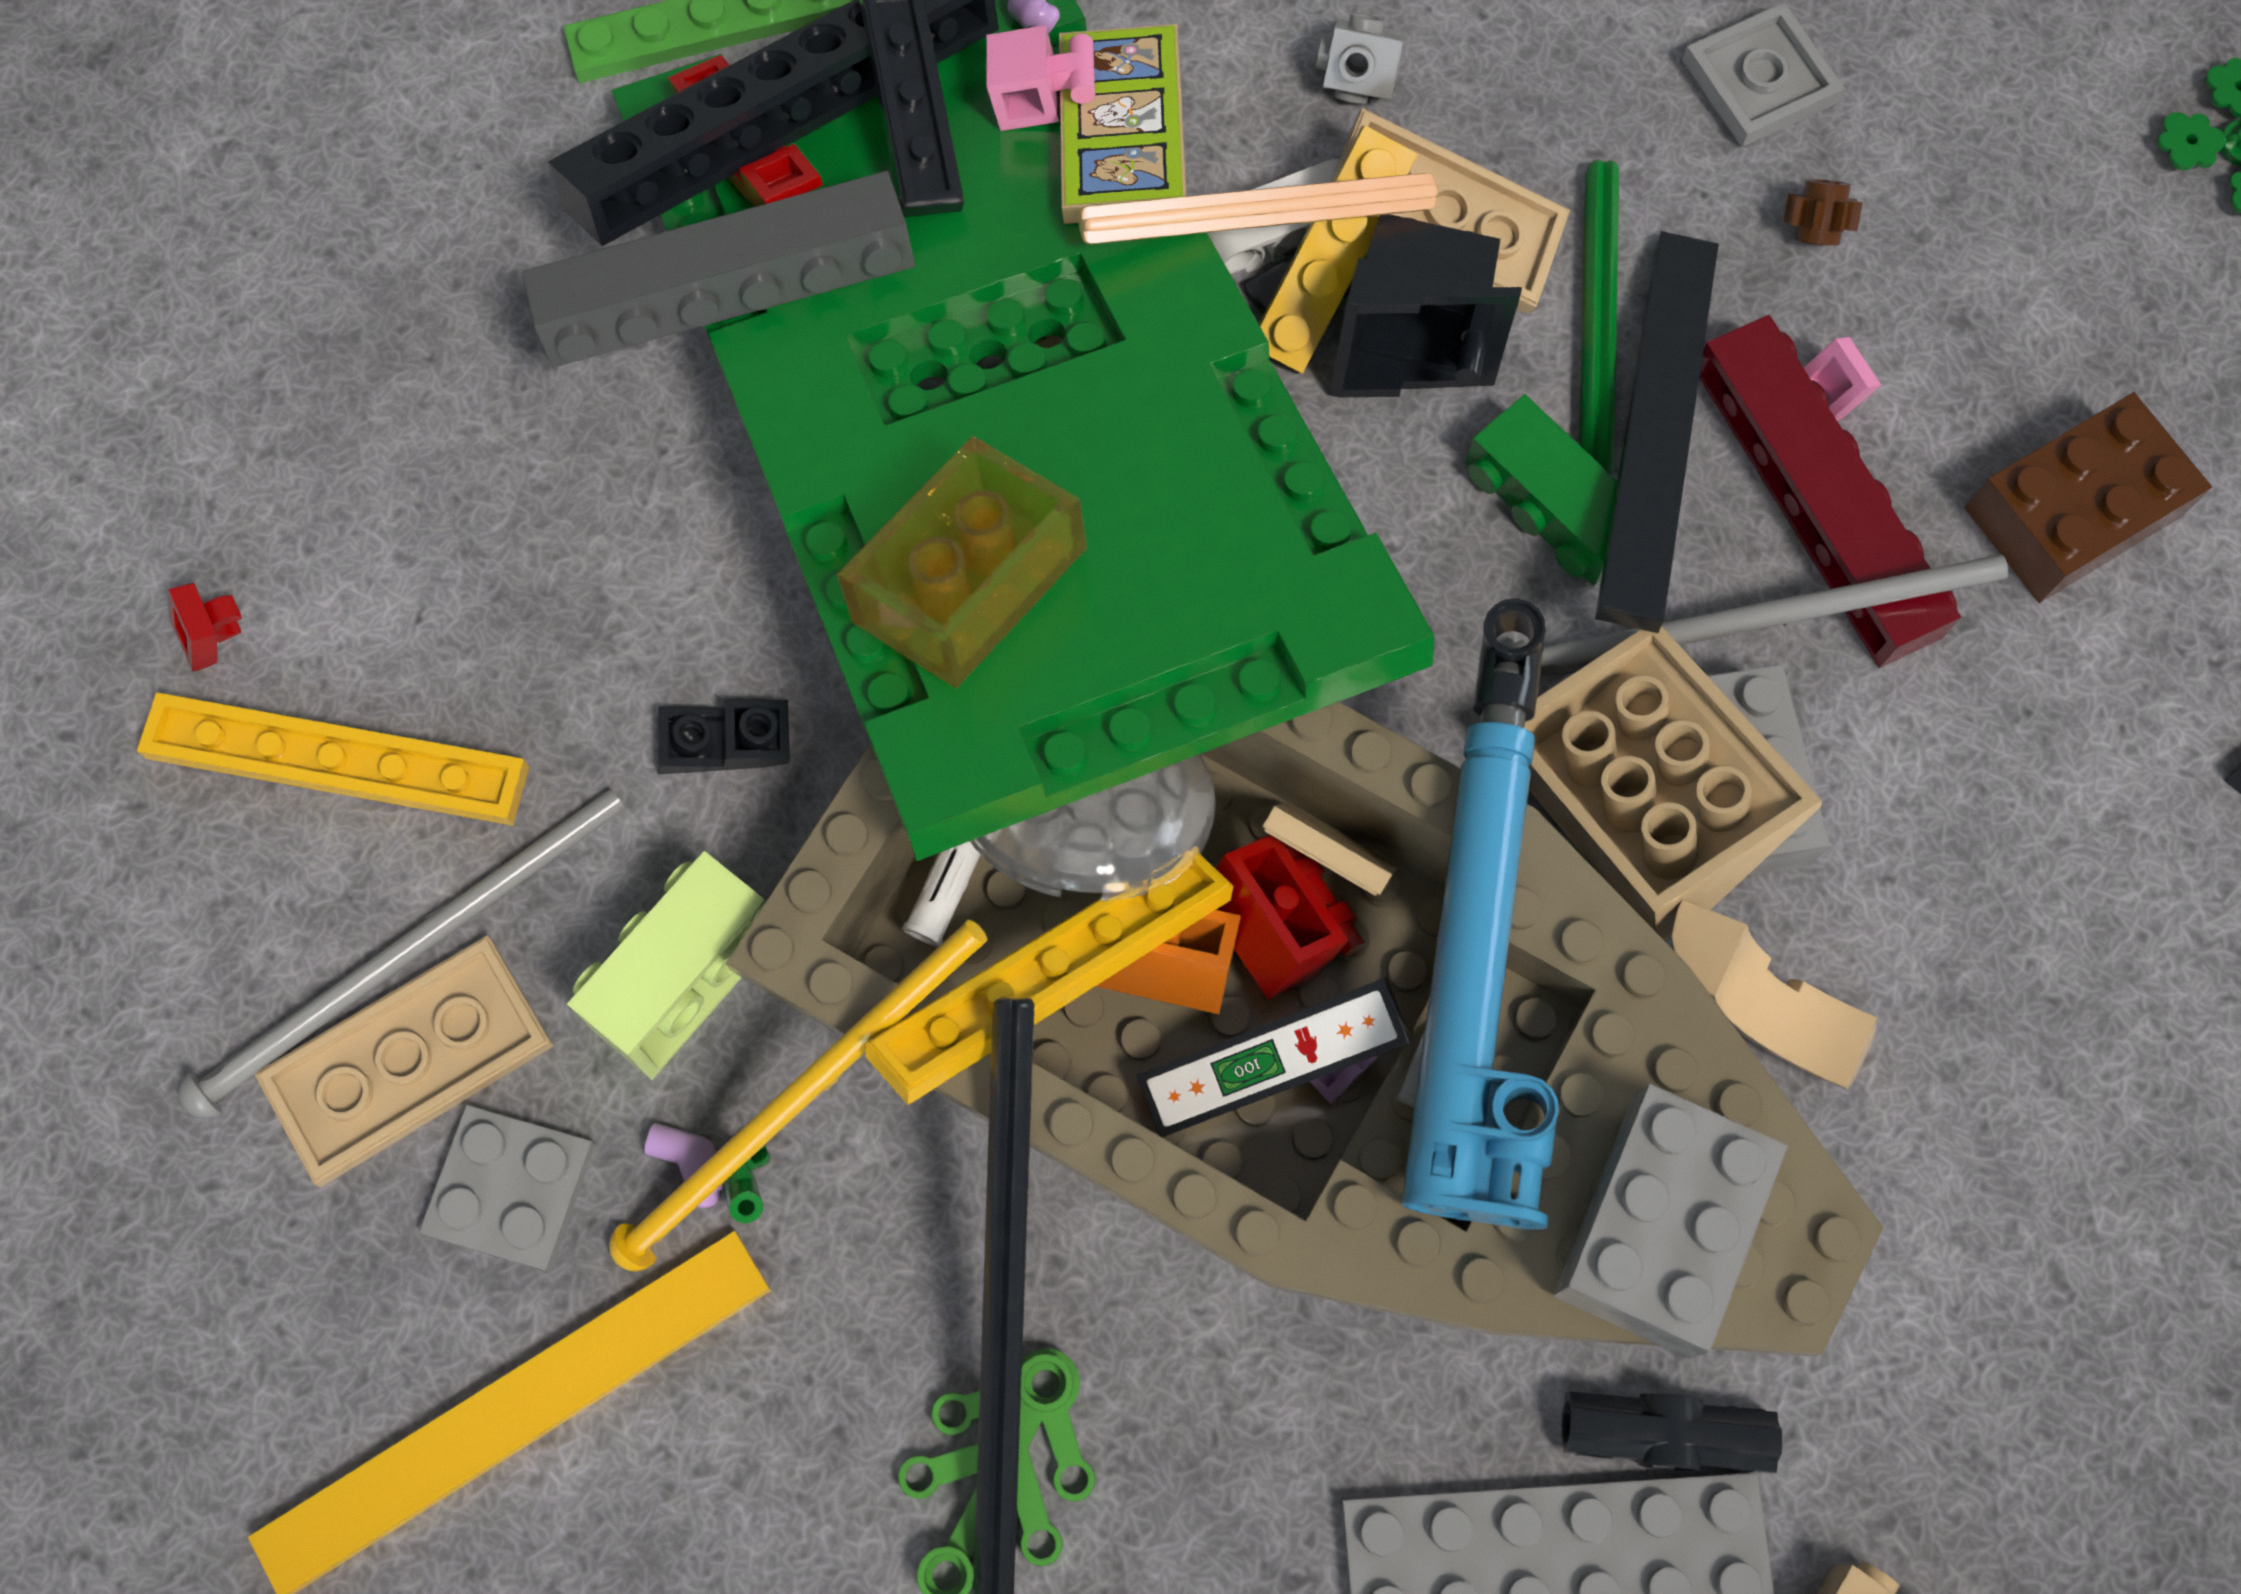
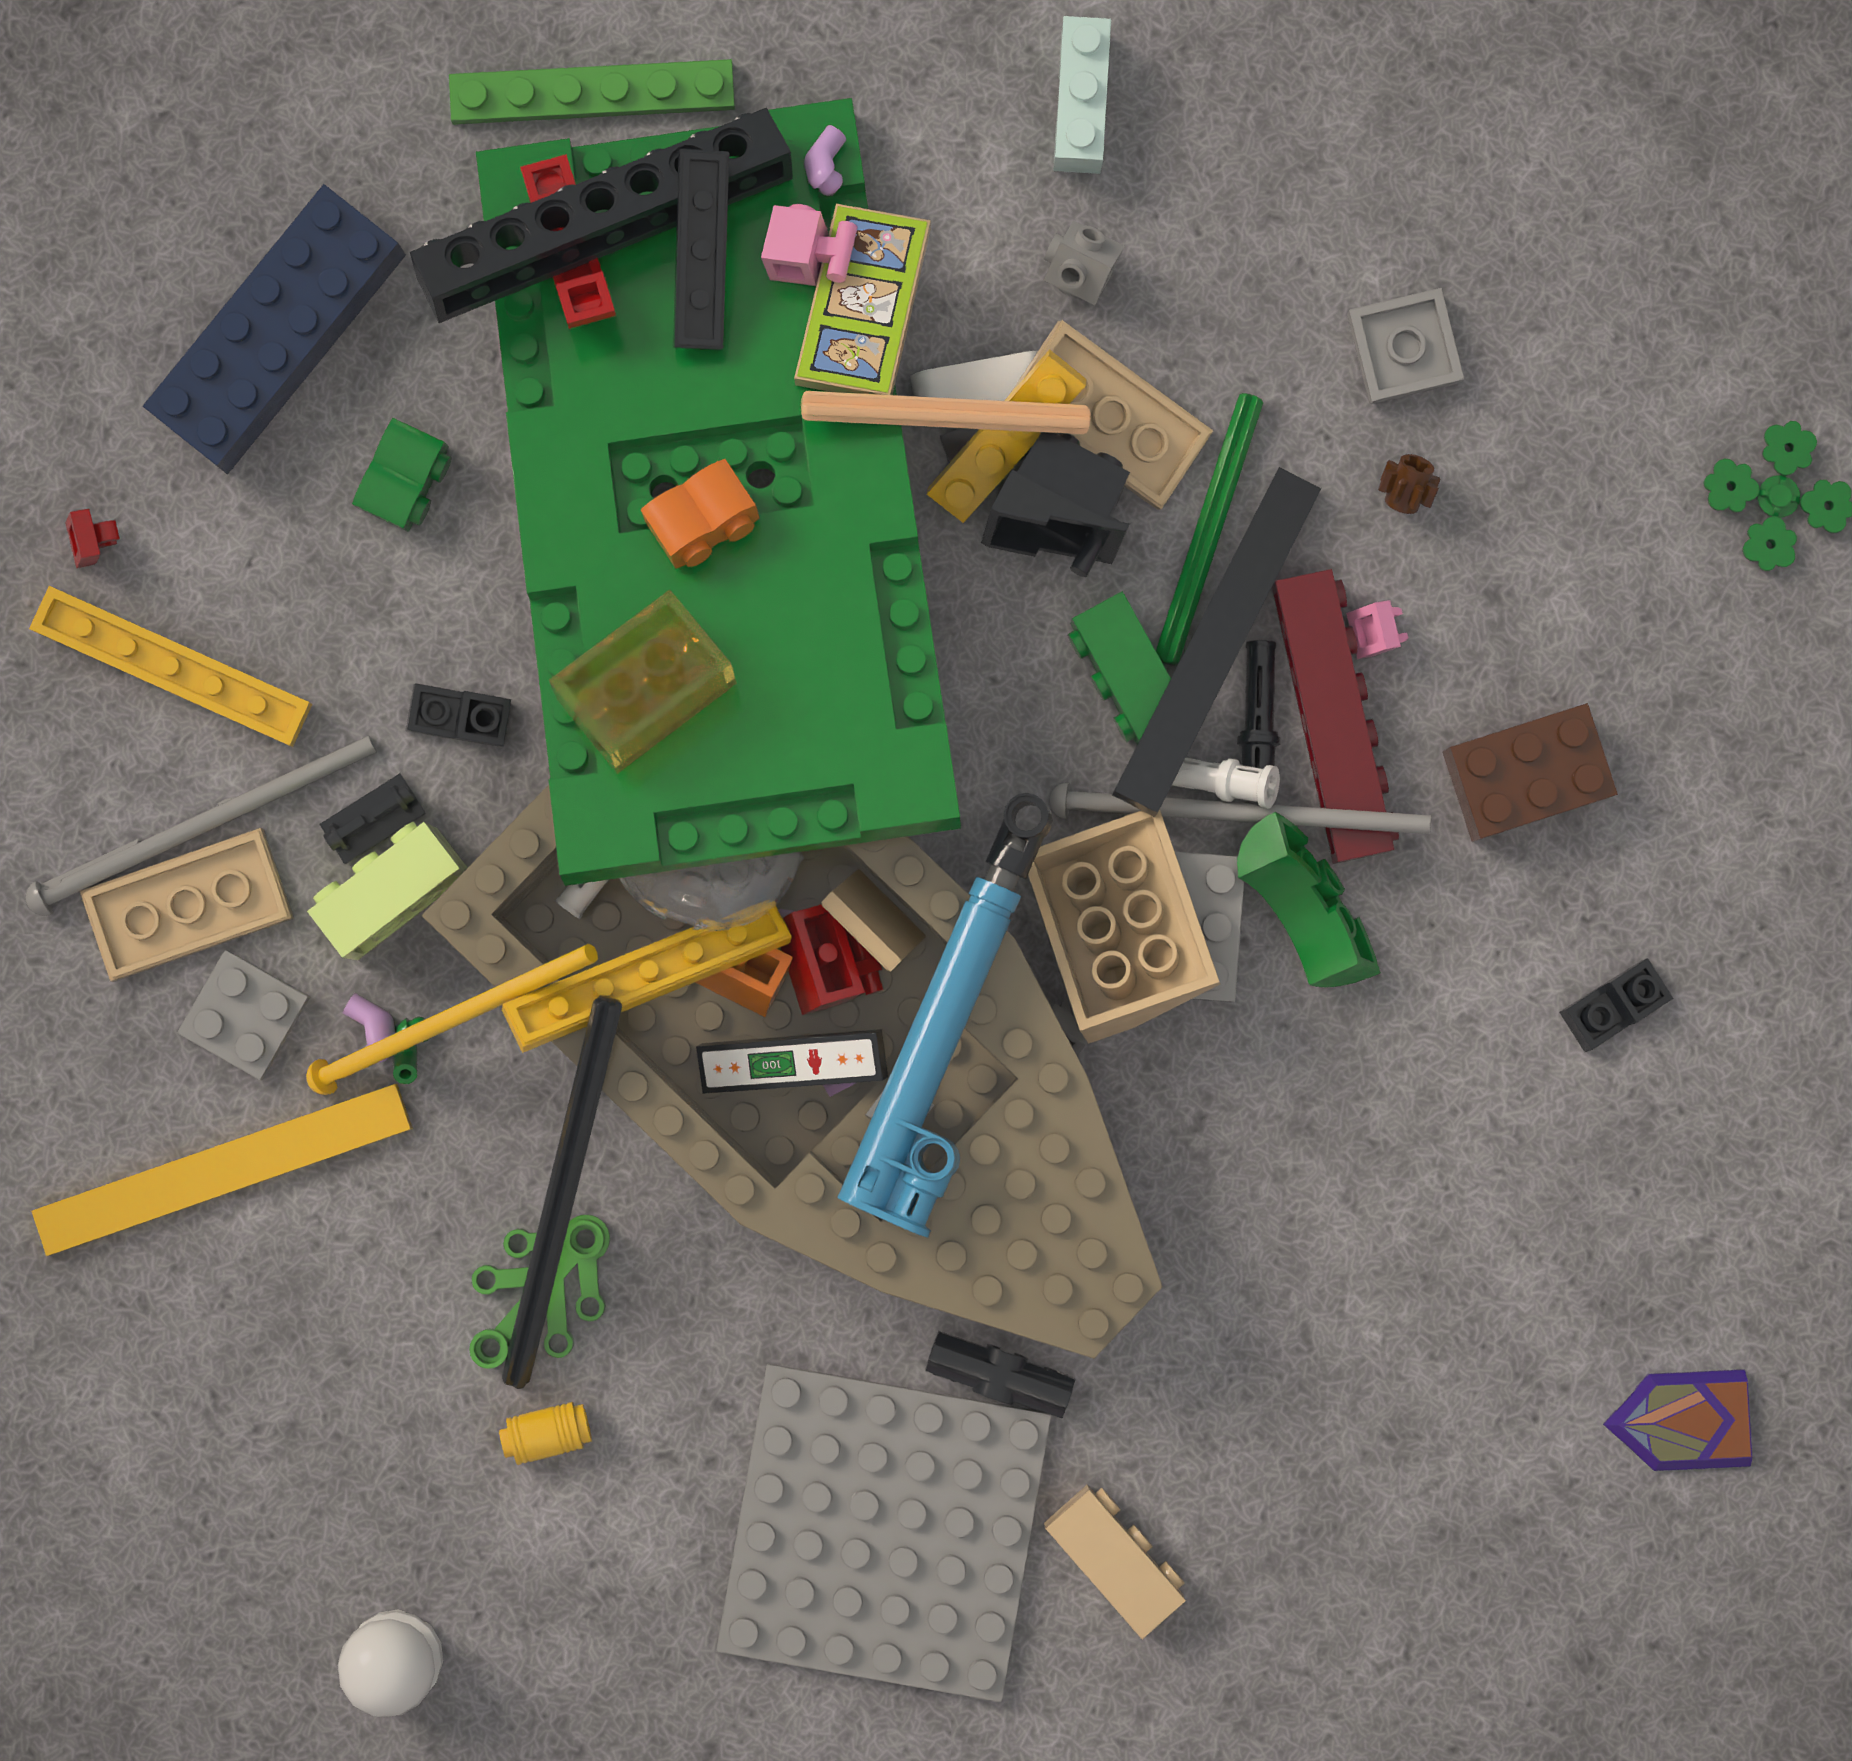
camera: 15 degrees right, 15 degrees up
(399, 336) = (275, 329): none -> dark blue brick
(592, 466) = (401, 475): none -> green brick
(630, 888) = (372, 819): none -> black hinge
(718, 269) = (523, 367): dark grey brick -> none
(986, 369) = (701, 514): none -> orange brick
(1671, 1222) = (1009, 1254): light grey brick -> none
(1733, 578) = (1231, 780): none -> white pin
(1739, 535) = (1259, 656): none -> black pin
(1779, 1017) = (1139, 1096): tan brick -> none
(1865, 710) = (1307, 902): none -> green brick

